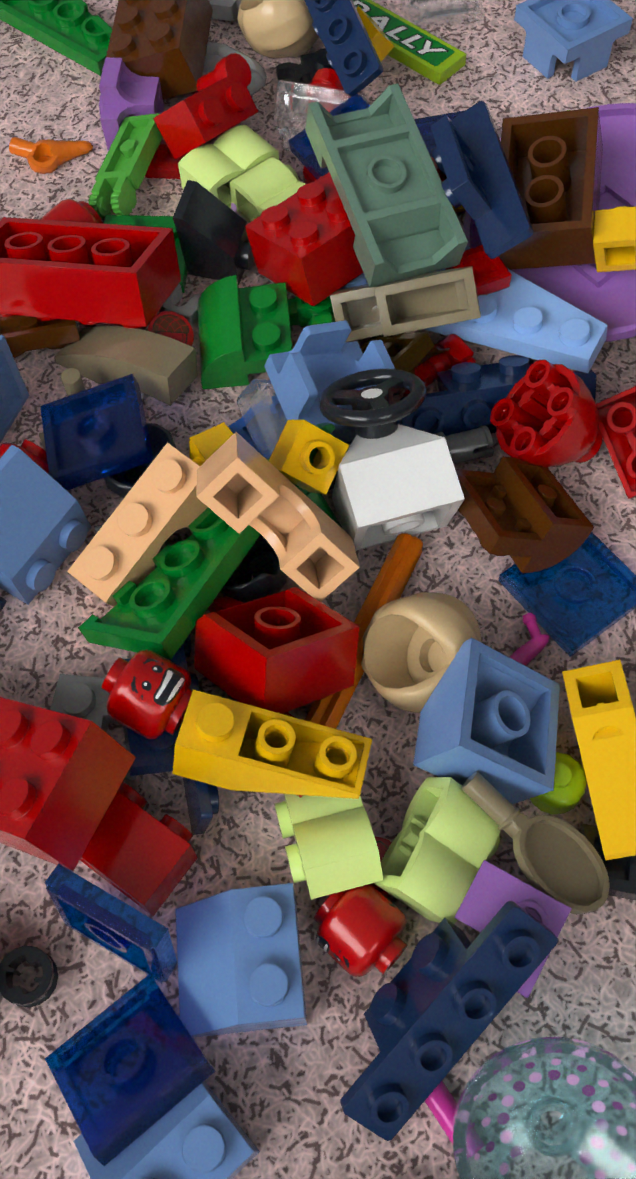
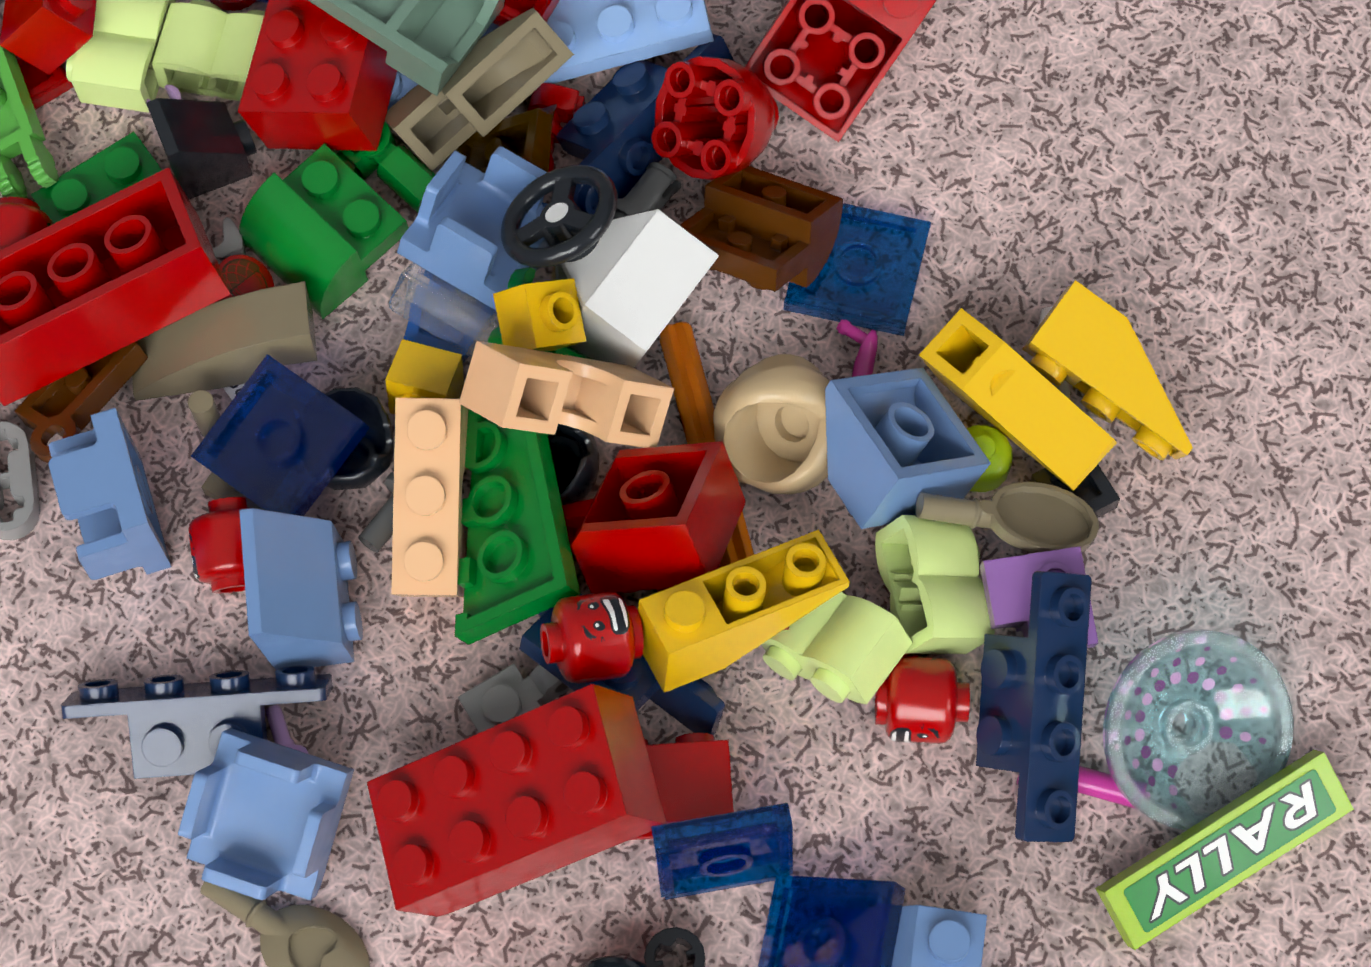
camera: 40 degrees left, 5 degrees up
(240, 962) = (850, 798): medium blue slope -> none

